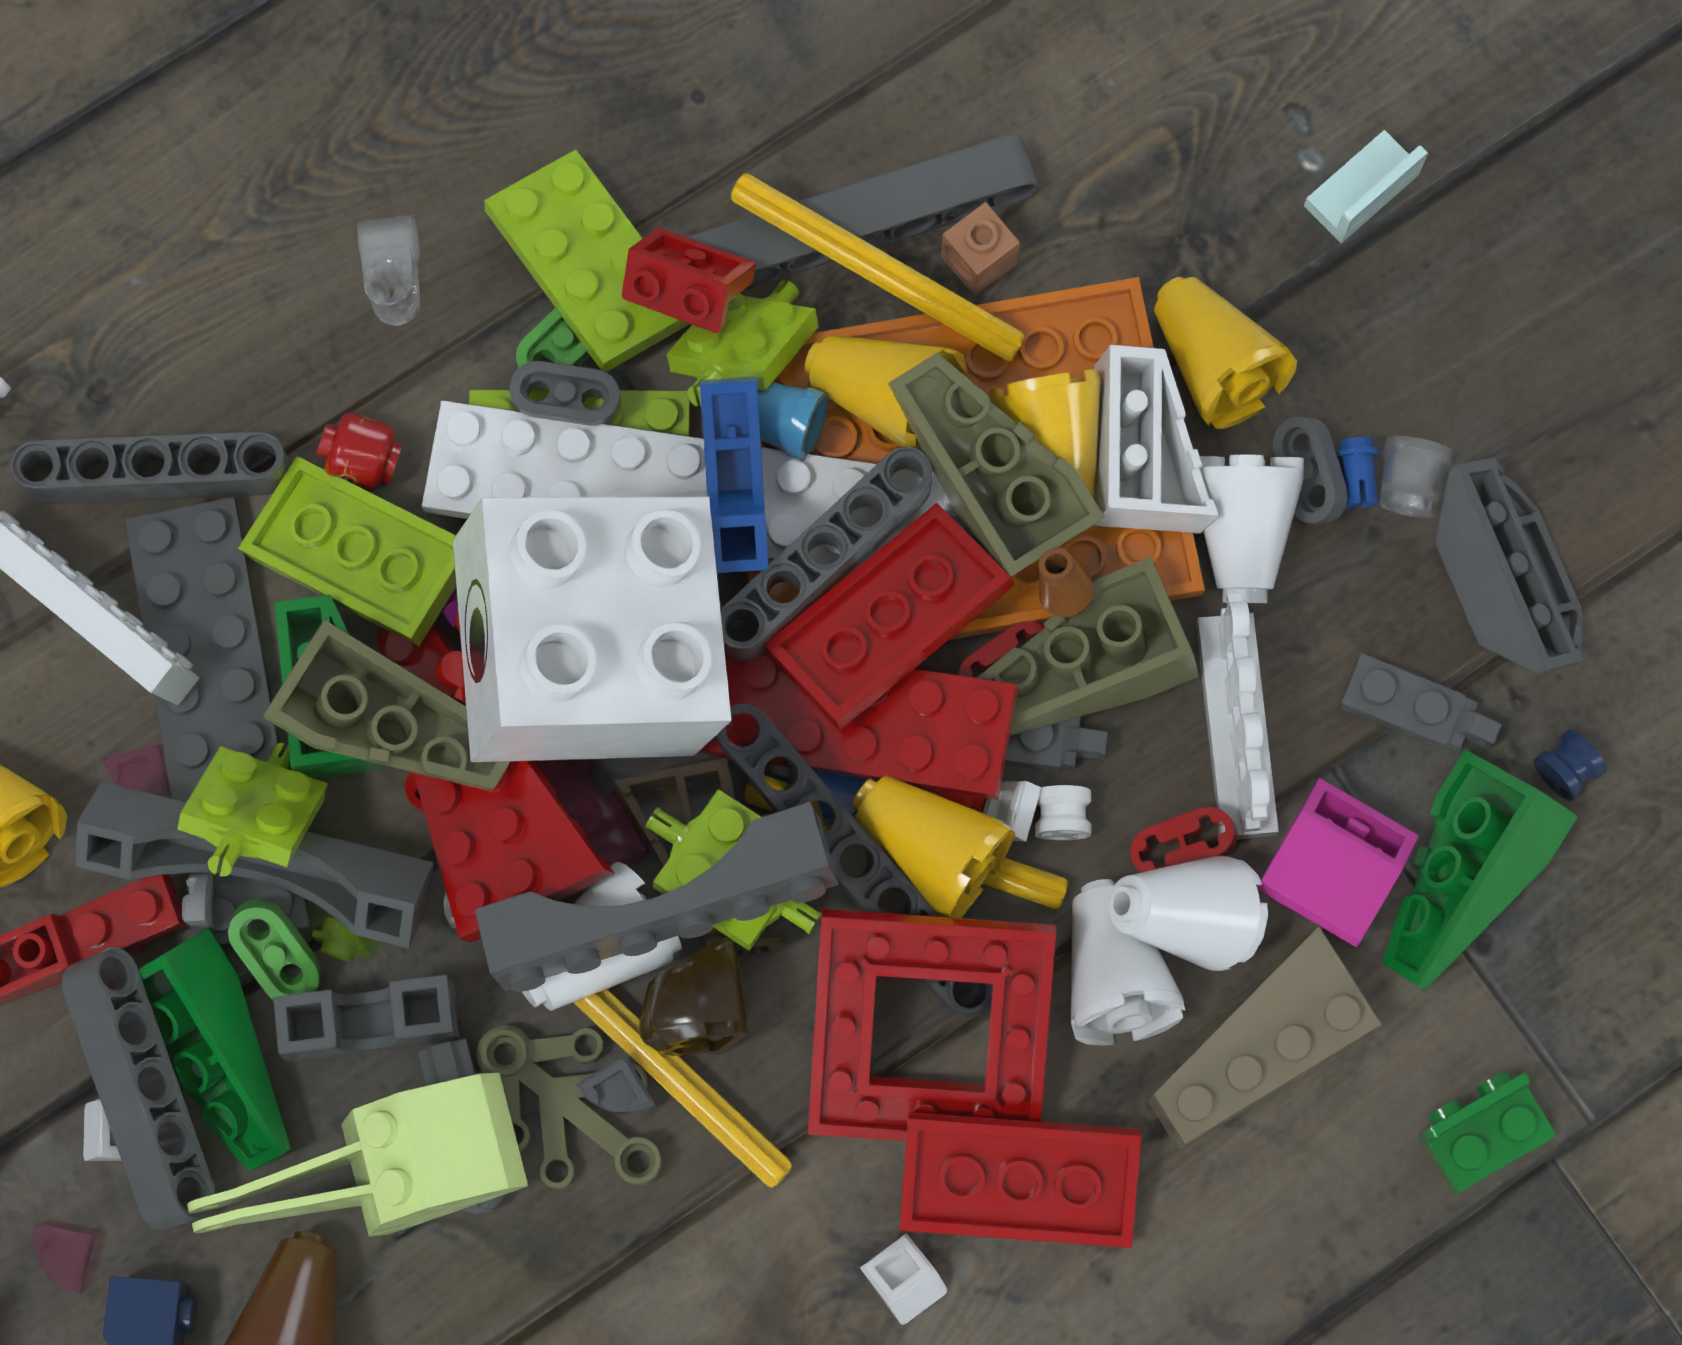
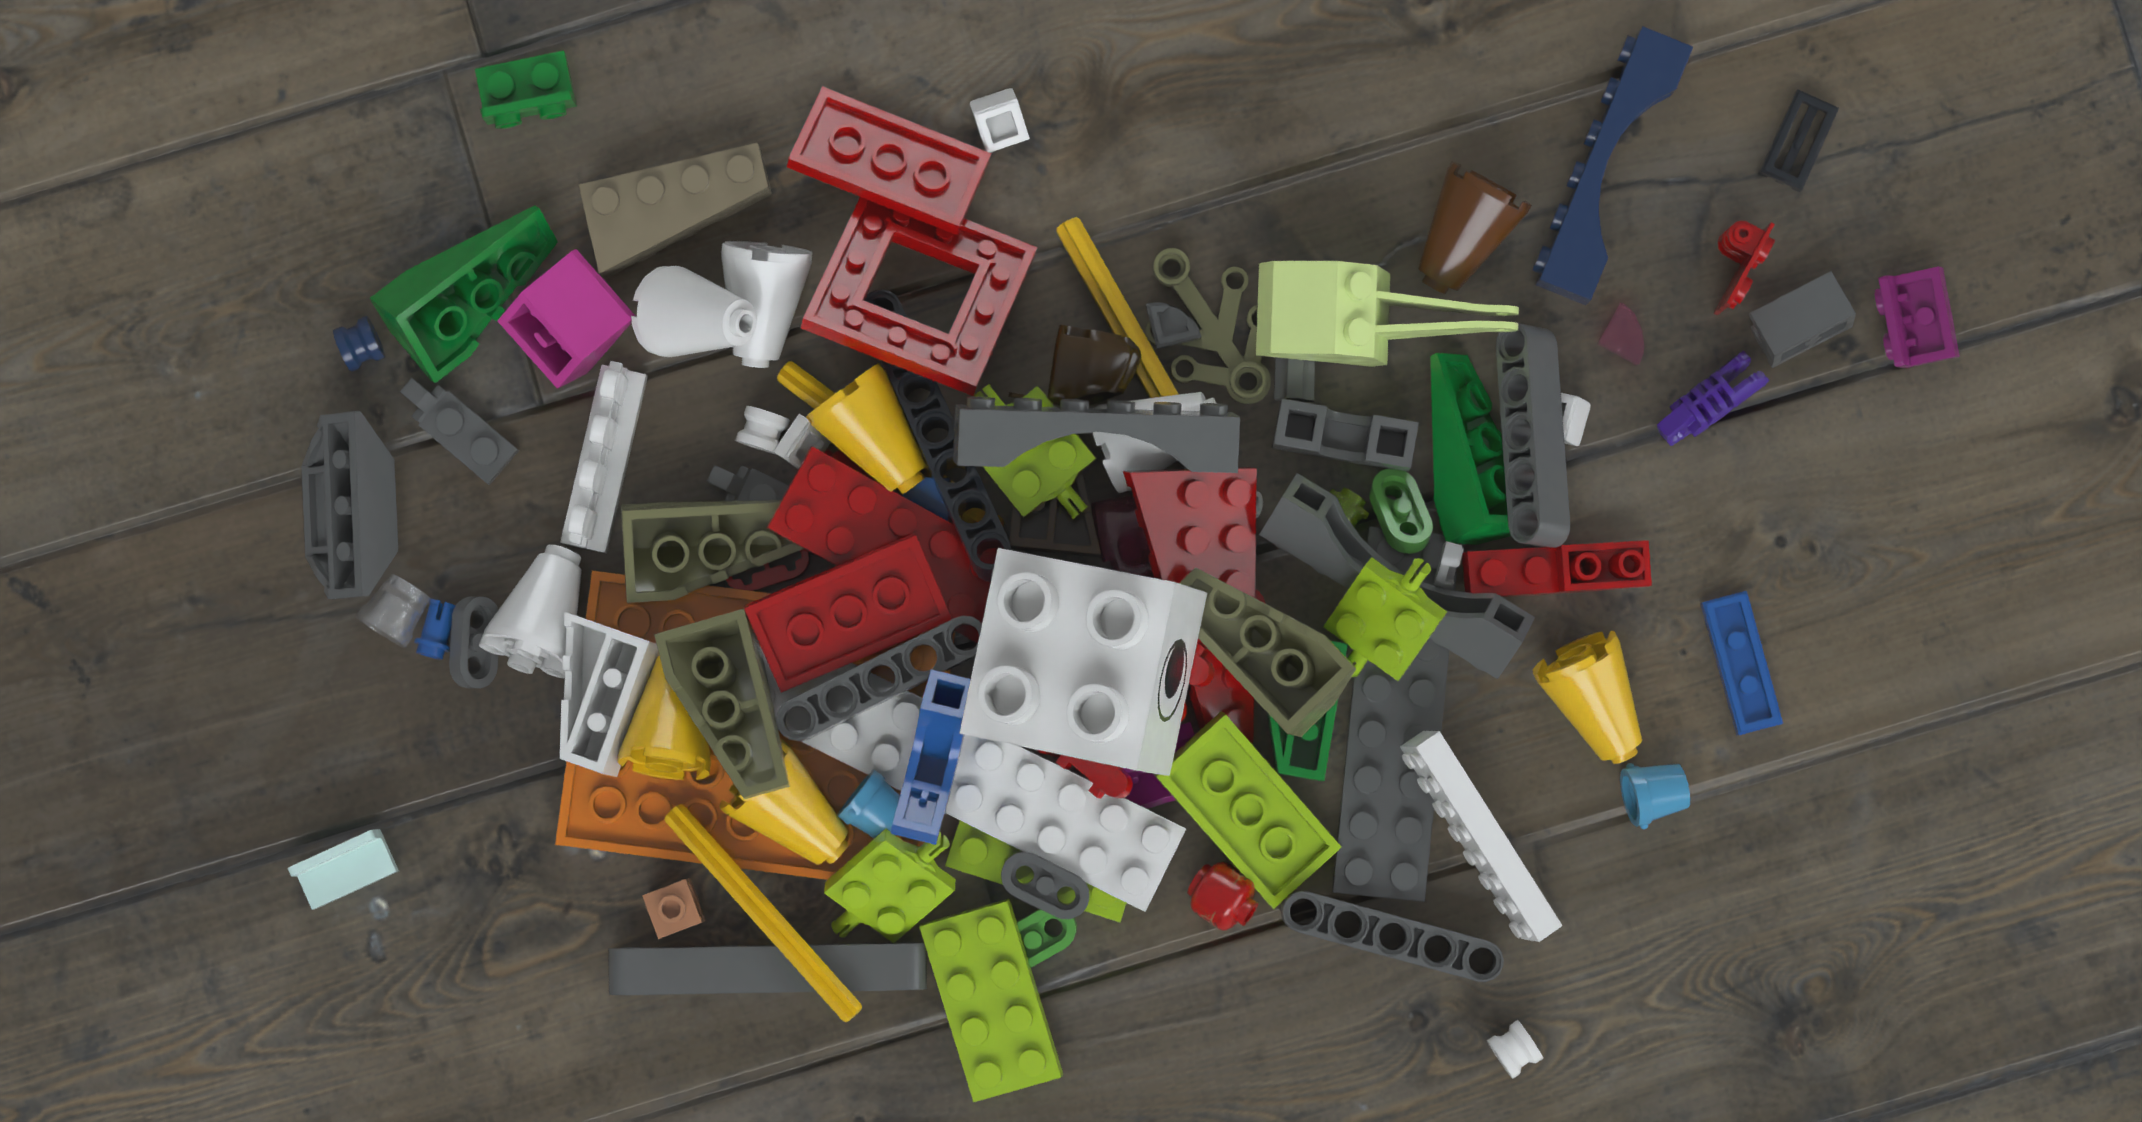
camera: 160 degrees left, 10 degrees up
(139, 770) = (1467, 691): clear pink tile -> none
(391, 261) = (1152, 1056): clear piece -> none
(685, 278) = (919, 947): red bracket -> none
(1063, 584) = (698, 586): dark orange cone -> none
(1179, 830) = (677, 388): red beam -> none
(1221, 352) = (513, 761): yellow cone -> none

